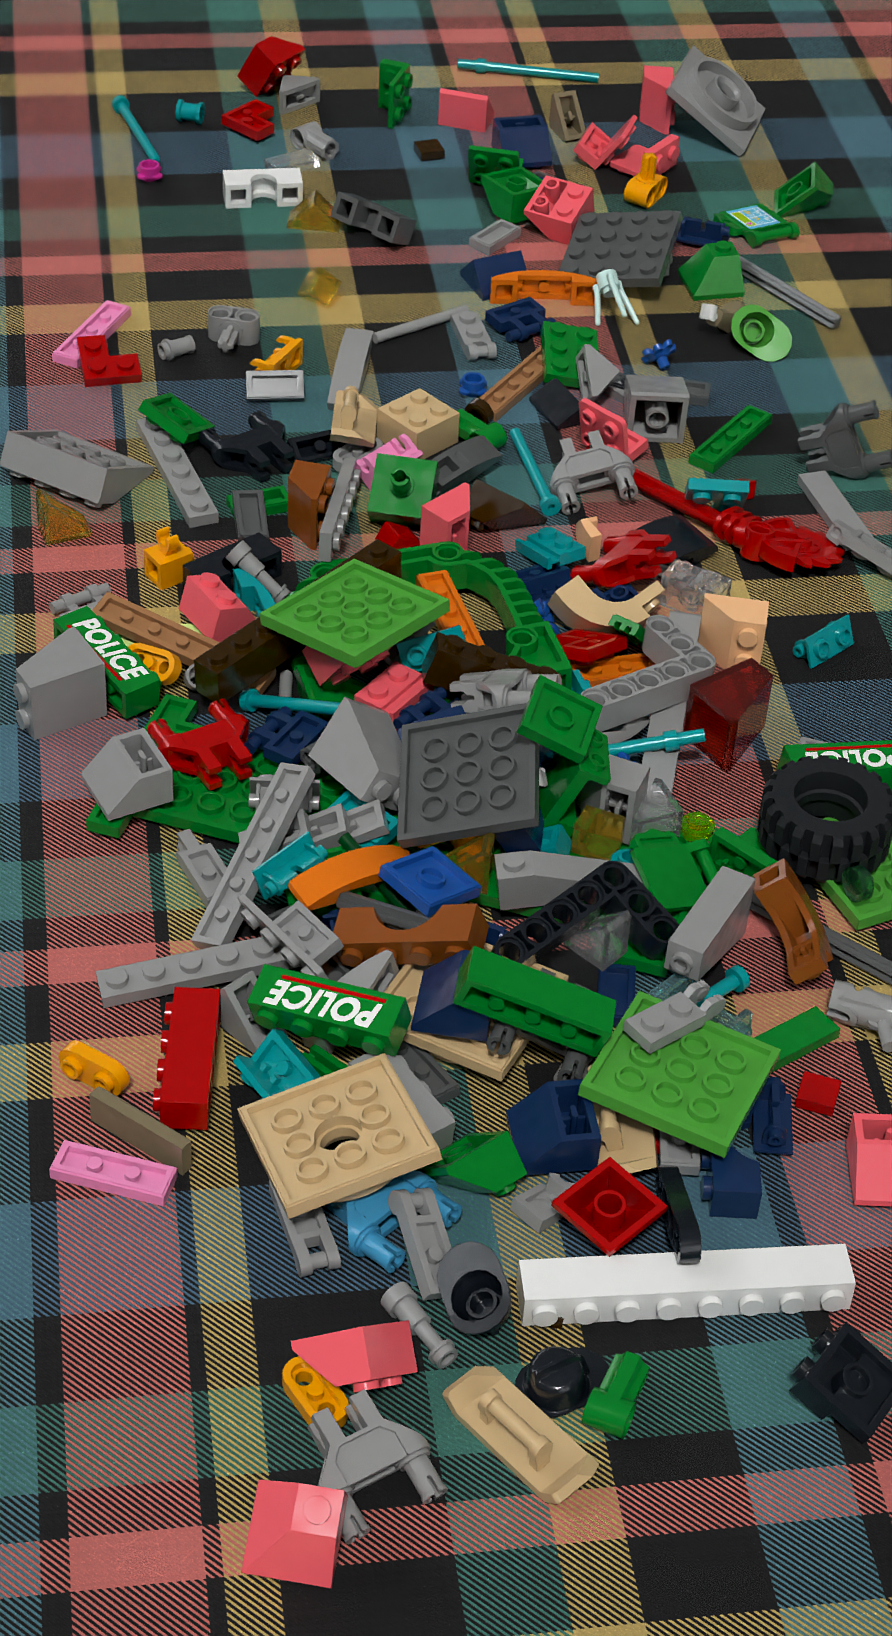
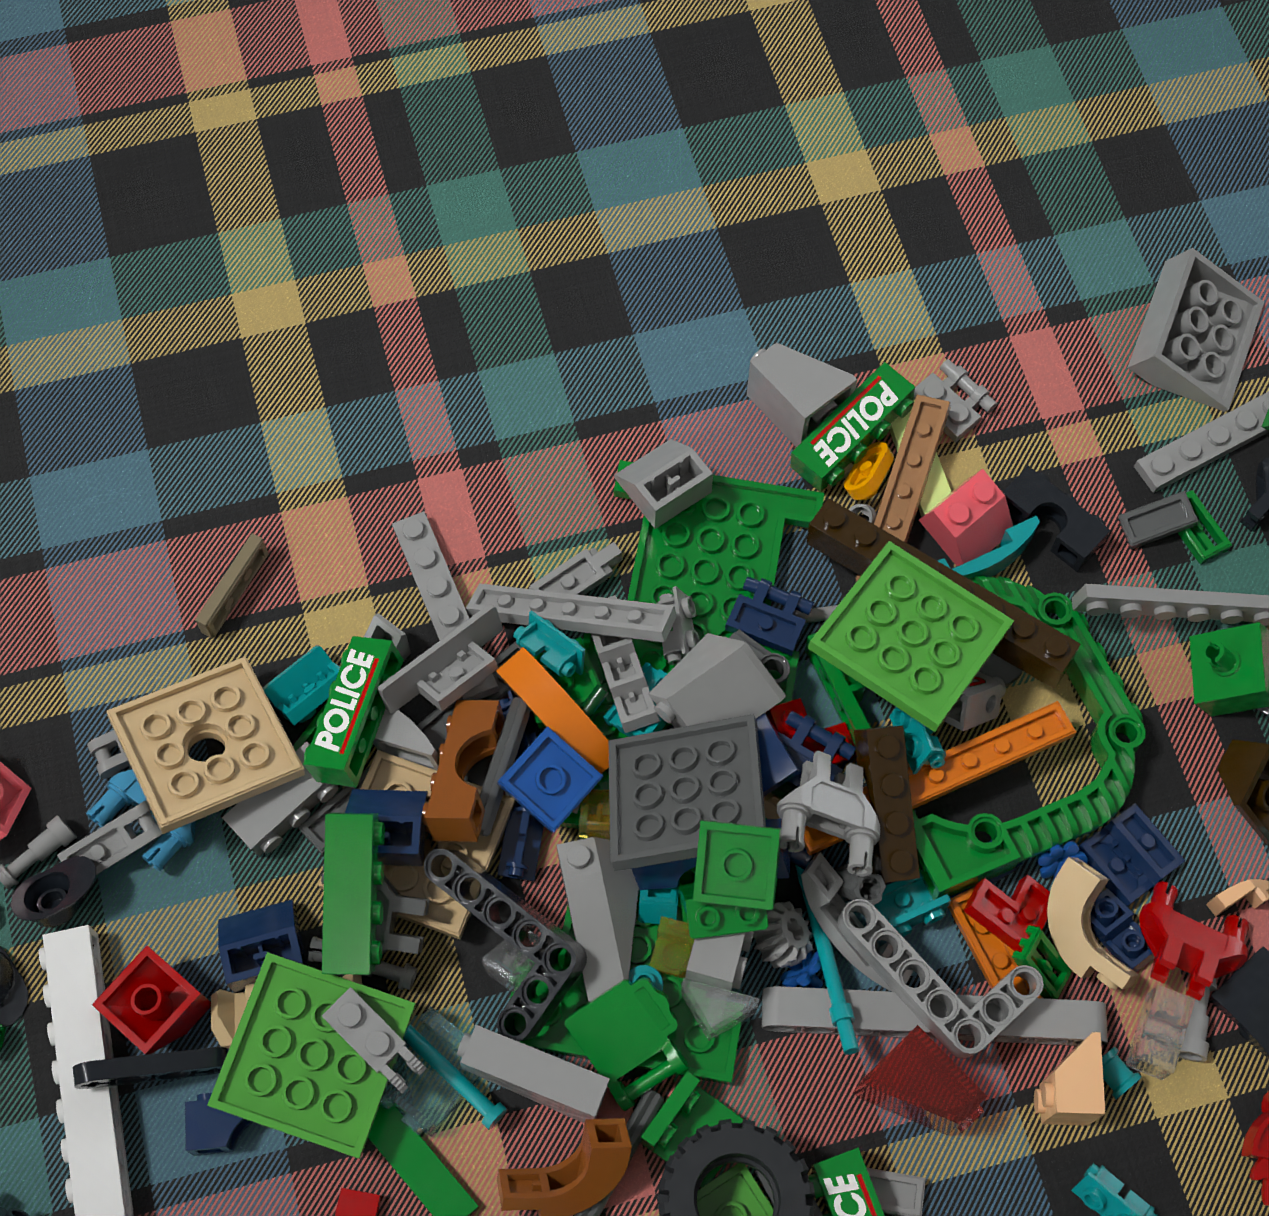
camera: 85 degrees right, 25 degrees up
(59, 521) = (1089, 338): clear yellow slope -> none
(93, 1067) = (305, 526): light orange plate -> none
(113, 1173) = (193, 575): bright pink tile -> none
(165, 560) = (1047, 452): light orange brick -> none
(189, 1058) = (314, 607): red brick -> none
(209, 747) = (735, 546): red connector -> none
(245, 560) = (1050, 521): light grey piece -> none
(251, 700) = (841, 578): teal bar -> none
(308, 499) = (1189, 565): dark orange slope -> none
(394, 689) = (848, 705): coral plate -> none
(397, 536) = (1174, 682): red slope -> none
(447, 517) = (1187, 730): coral slope -> none
(479, 1164) = (214, 870): green slope -> none
(535, 1204) = (189, 951): light grey slope -> none
(550, 548) = (1201, 854): teal plate -> none
(619, 984) = (468, 994): dark blue tile -> none
(697, 826) = (716, 1057): clear neon green plate -> none
(773, 1119) = (307, 1166): dark blue hinge -> none

